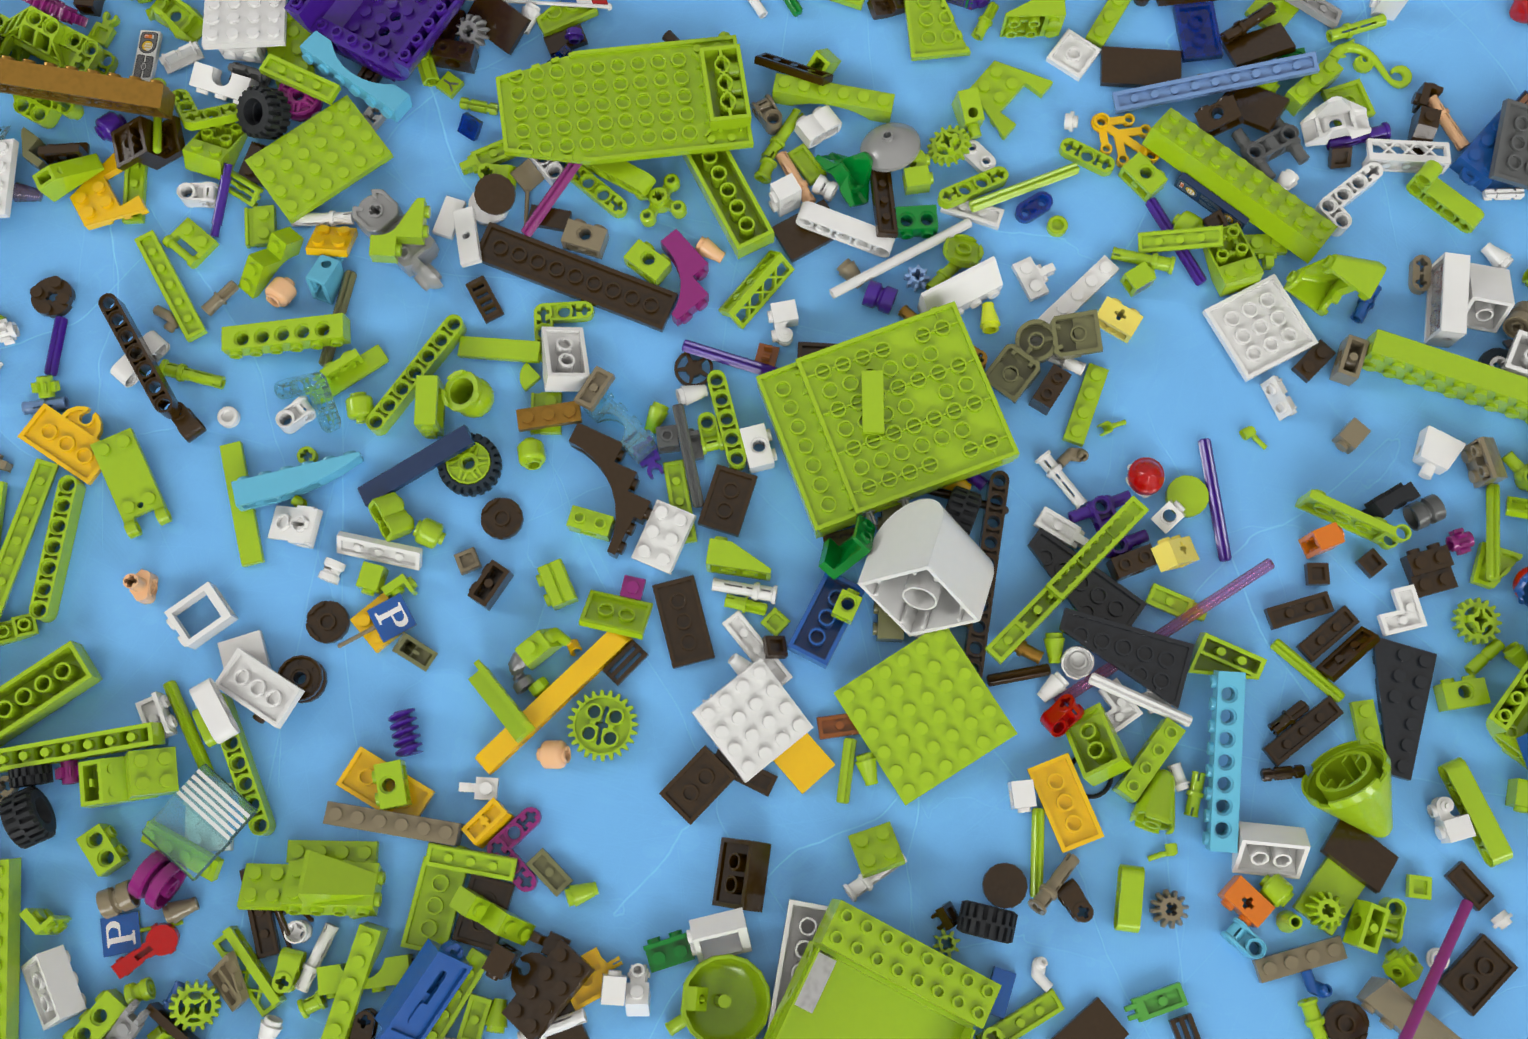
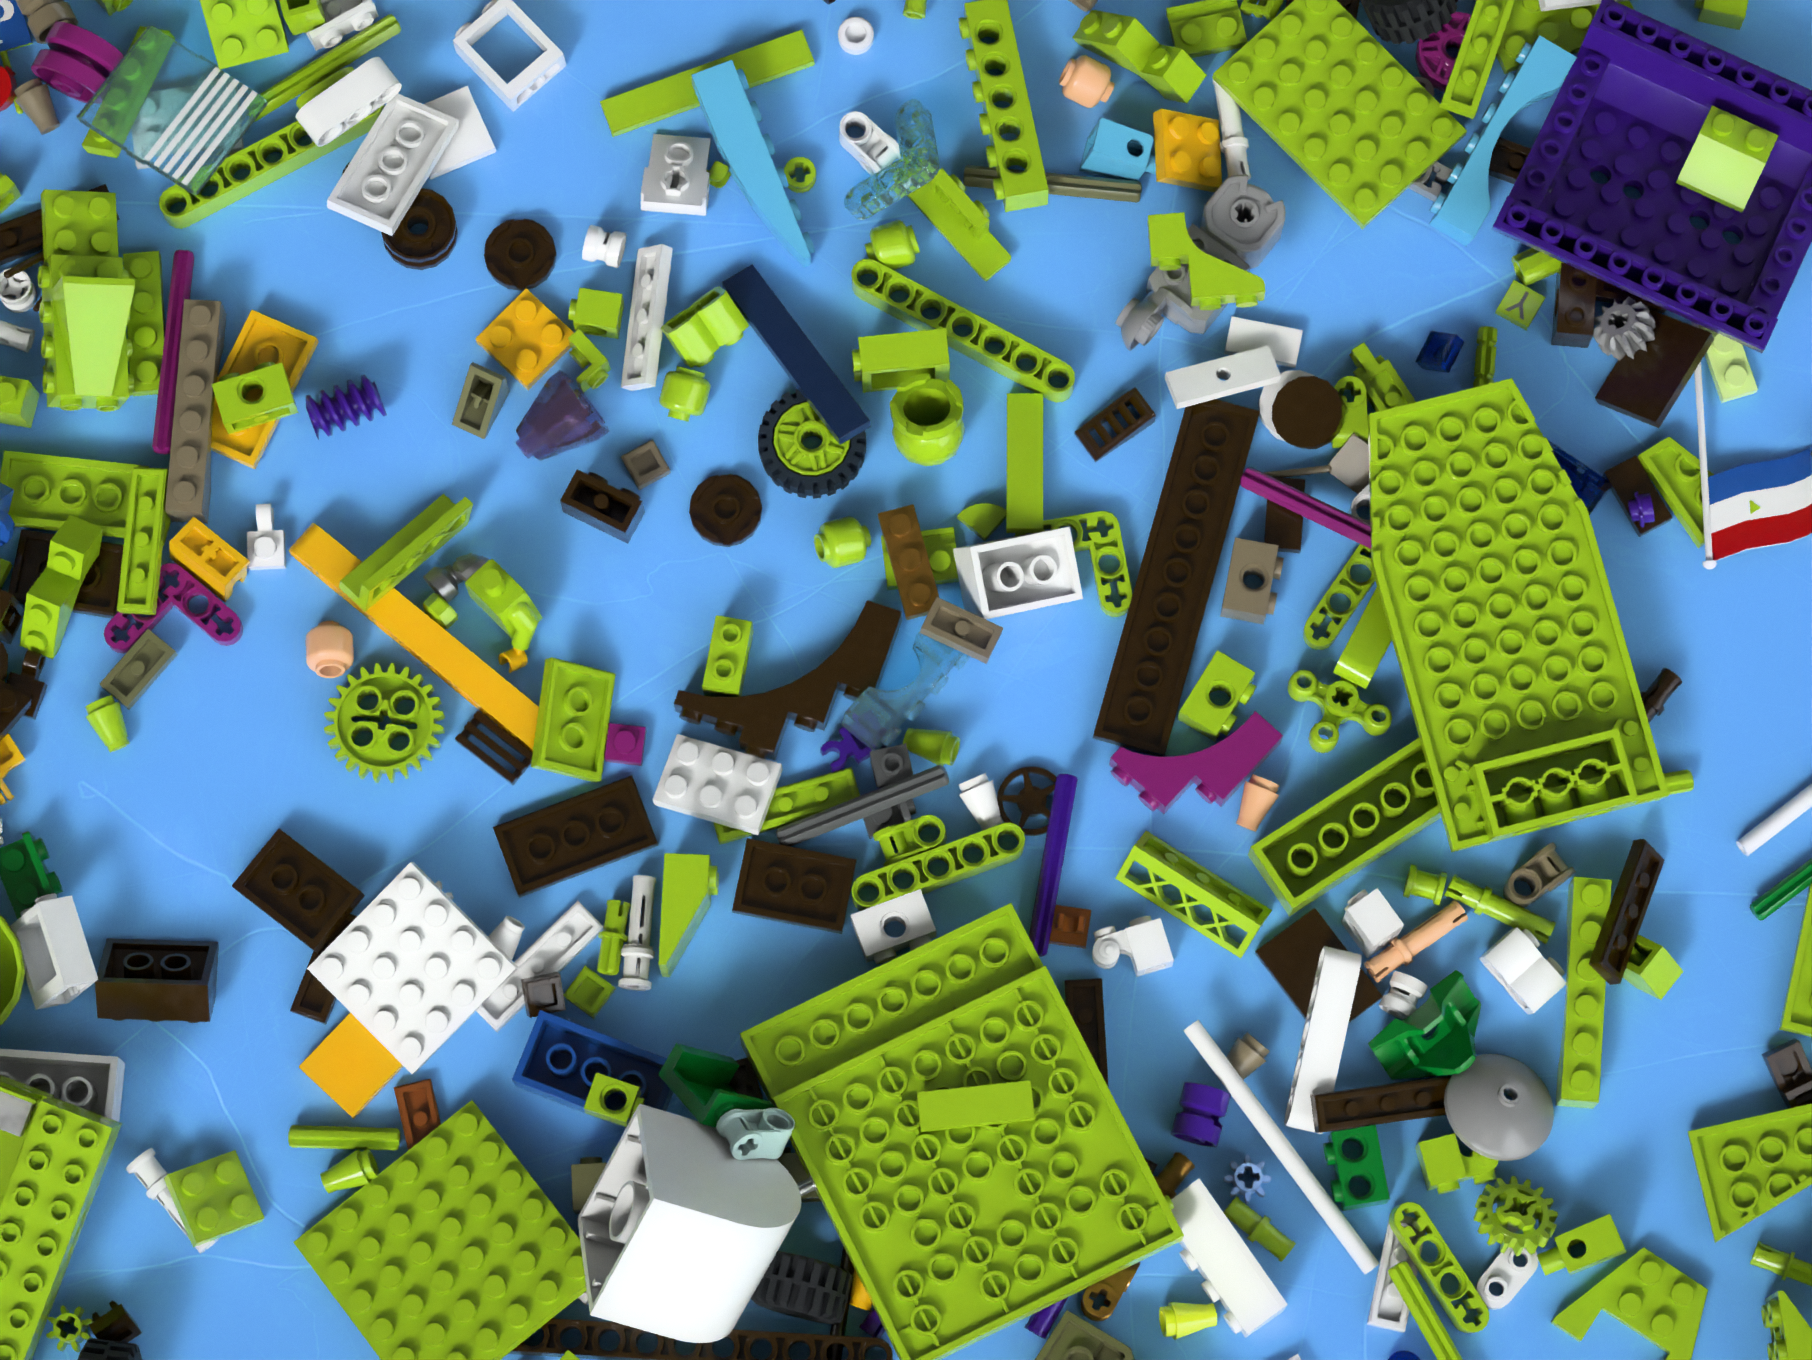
camera: 85 degrees right, 0 degrees up
(354, 835) = (179, 290): none -> magenta axle
(389, 619) = (529, 352): blue piece -> none
(434, 606) = (559, 420): none -> clear purple cone
(532, 12) = (1678, 425): white cone -> none
(557, 585) = (616, 615): lime brick -> none
(806, 164) = (1454, 953): lime tile -> none
(877, 521) = (756, 1132): none -> light aqua piece
(962, 251) = (1309, 1259): lime tile -> none

